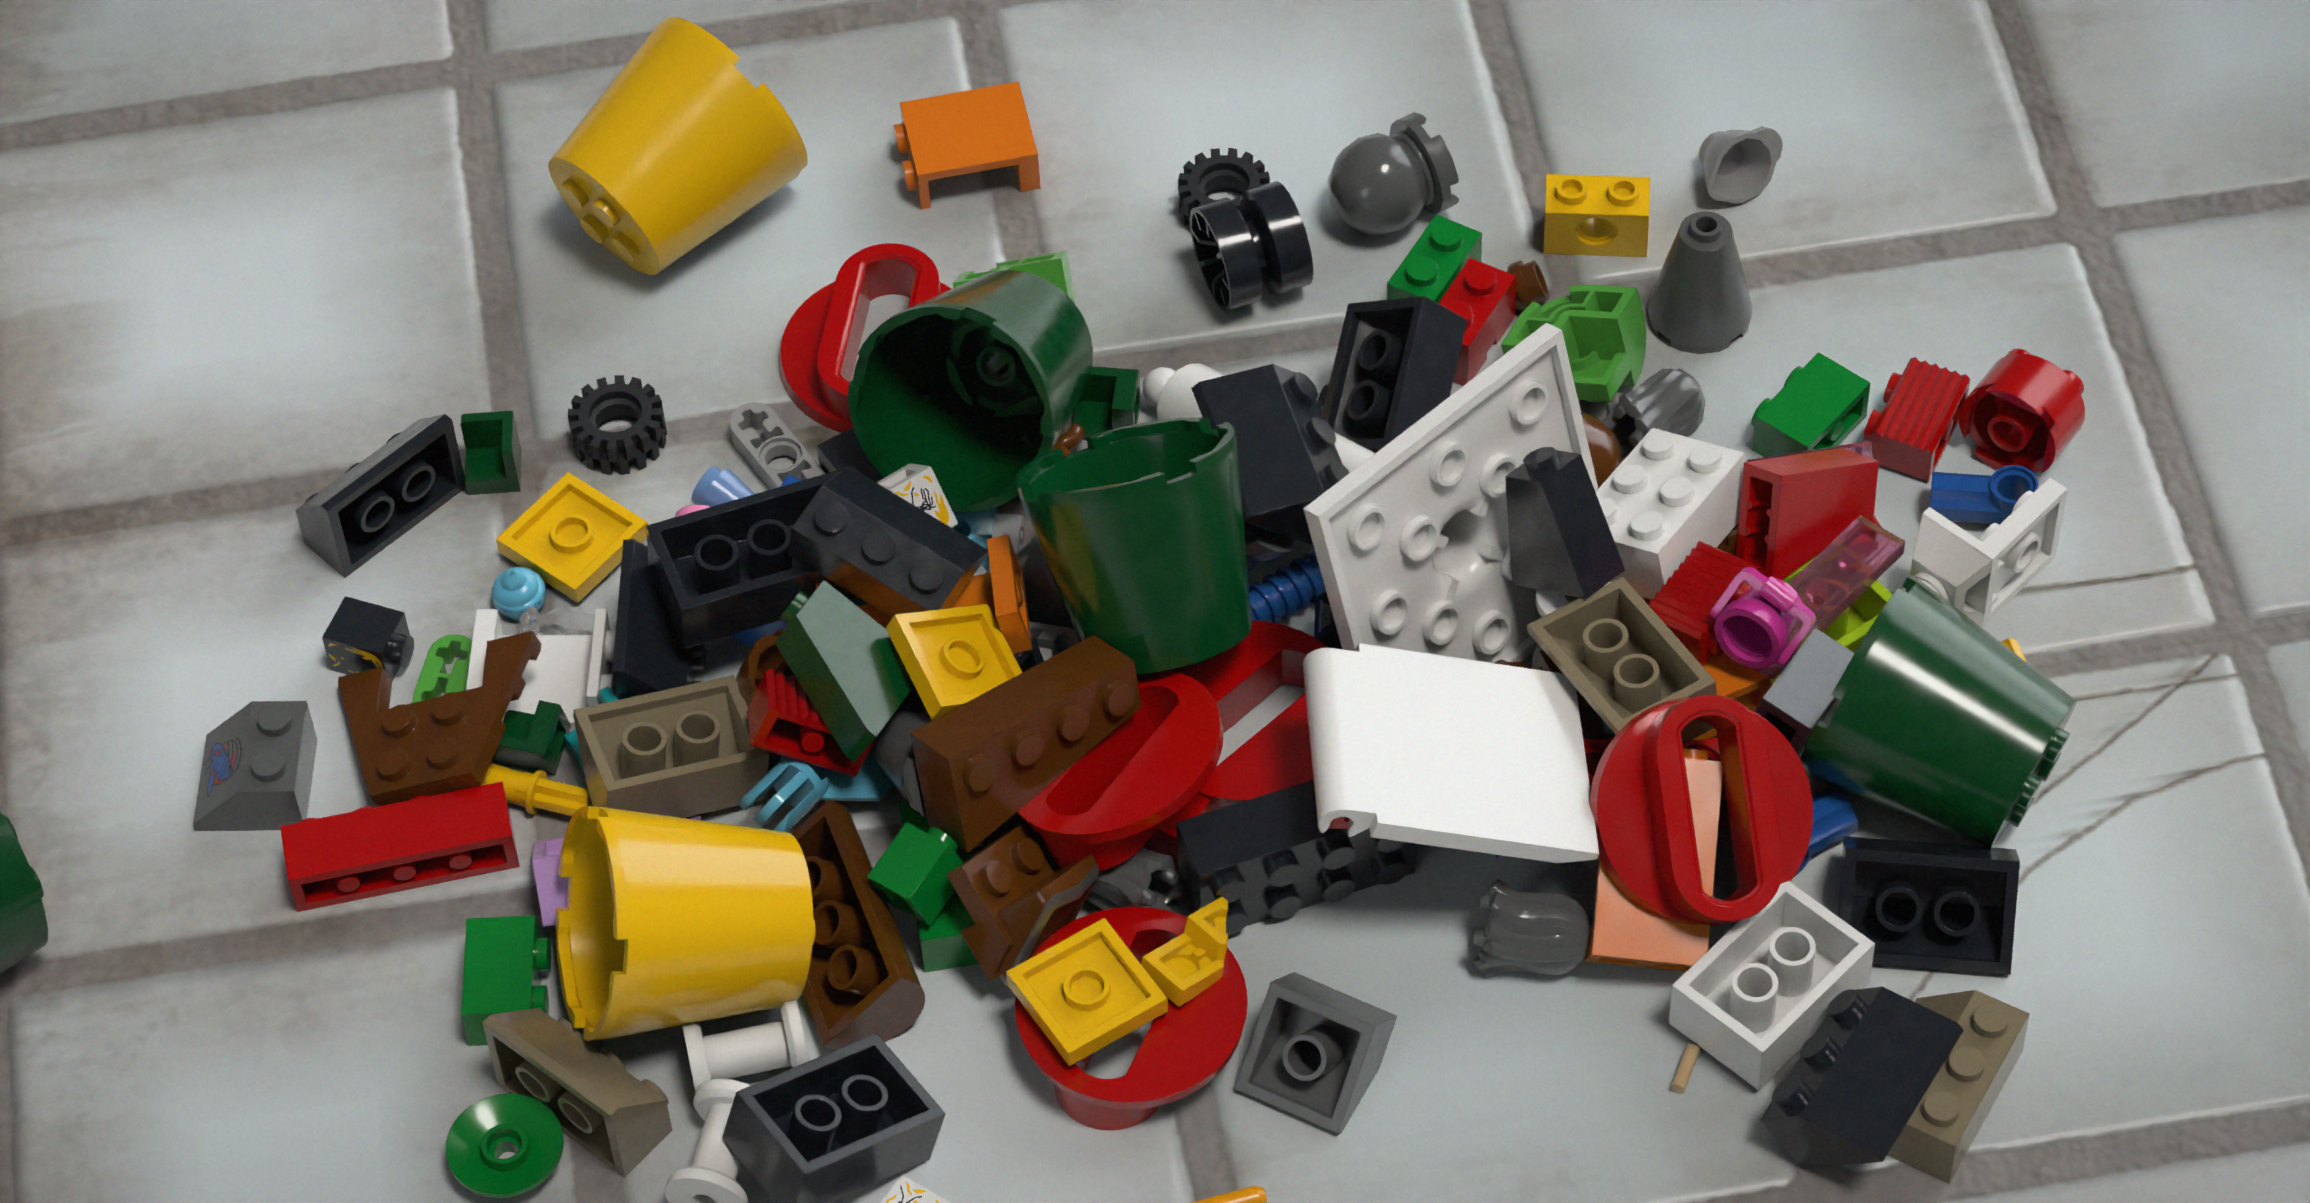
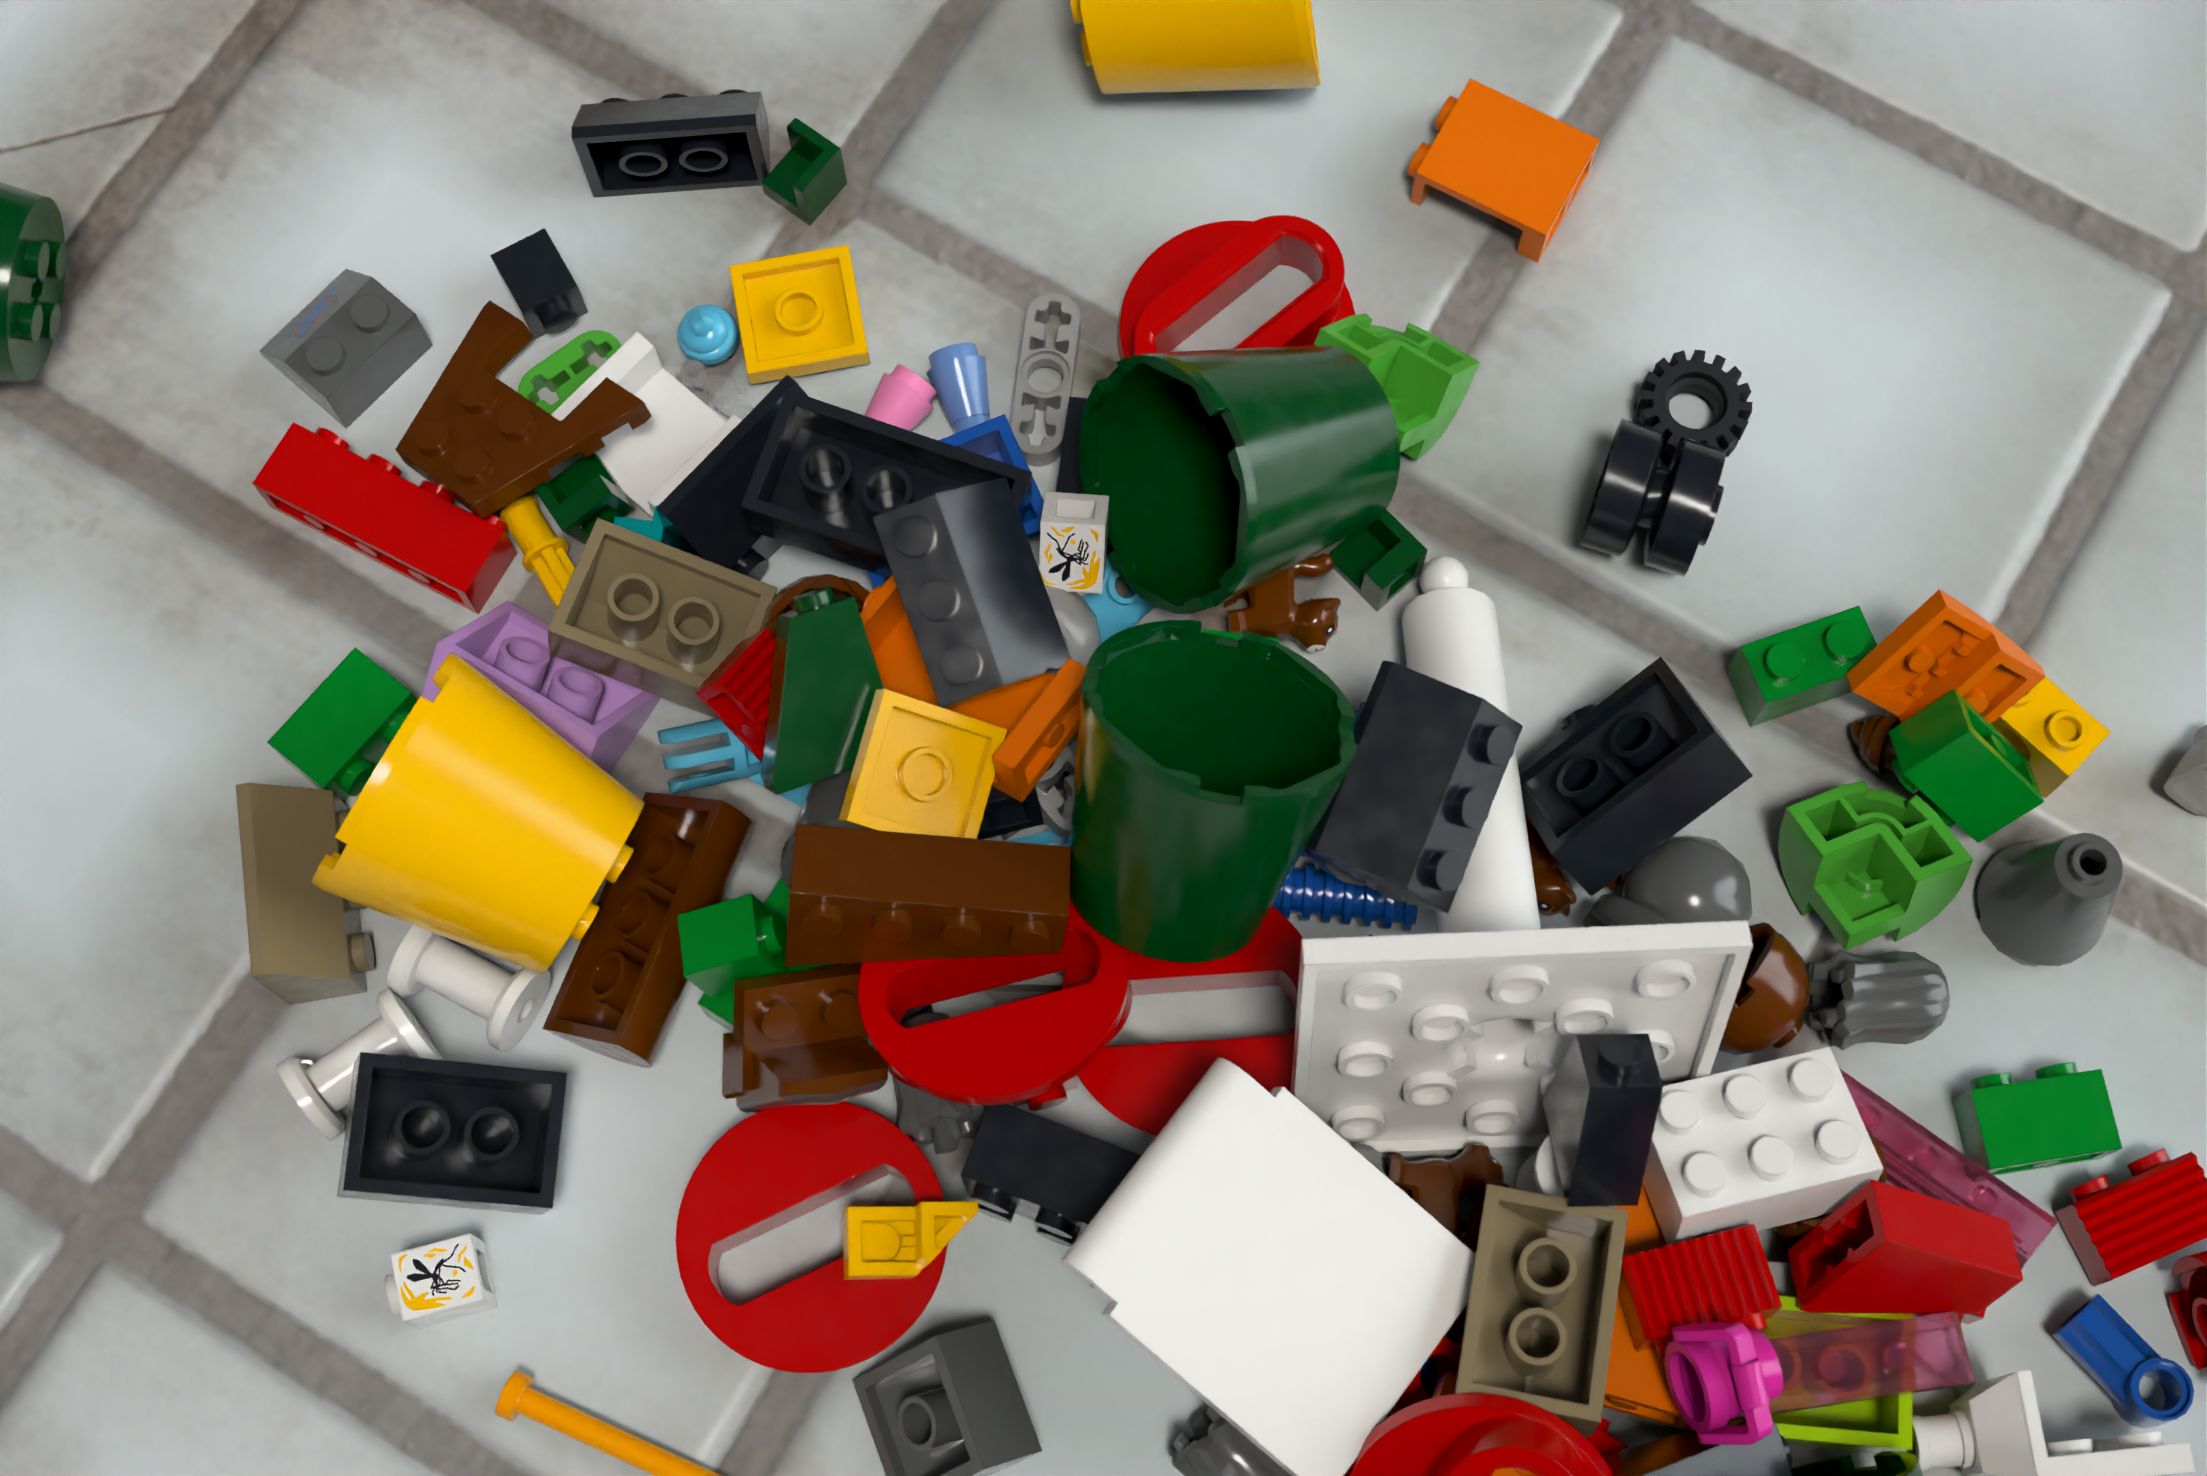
camera: 40 degrees right, 20 degrees up
(502, 1126) = (176, 894): green dish -> none
(620, 447) = (931, 196): black tyre -> none
(1087, 991) = (771, 1197): yellow plate -> none
(1388, 180) = (1850, 524): dark grey tile -> none
(1488, 303) = (1799, 740): red brick -> none
(1524, 207) = (1945, 650): none -> orange slope
(1581, 251) = (1964, 767): none -> green brick

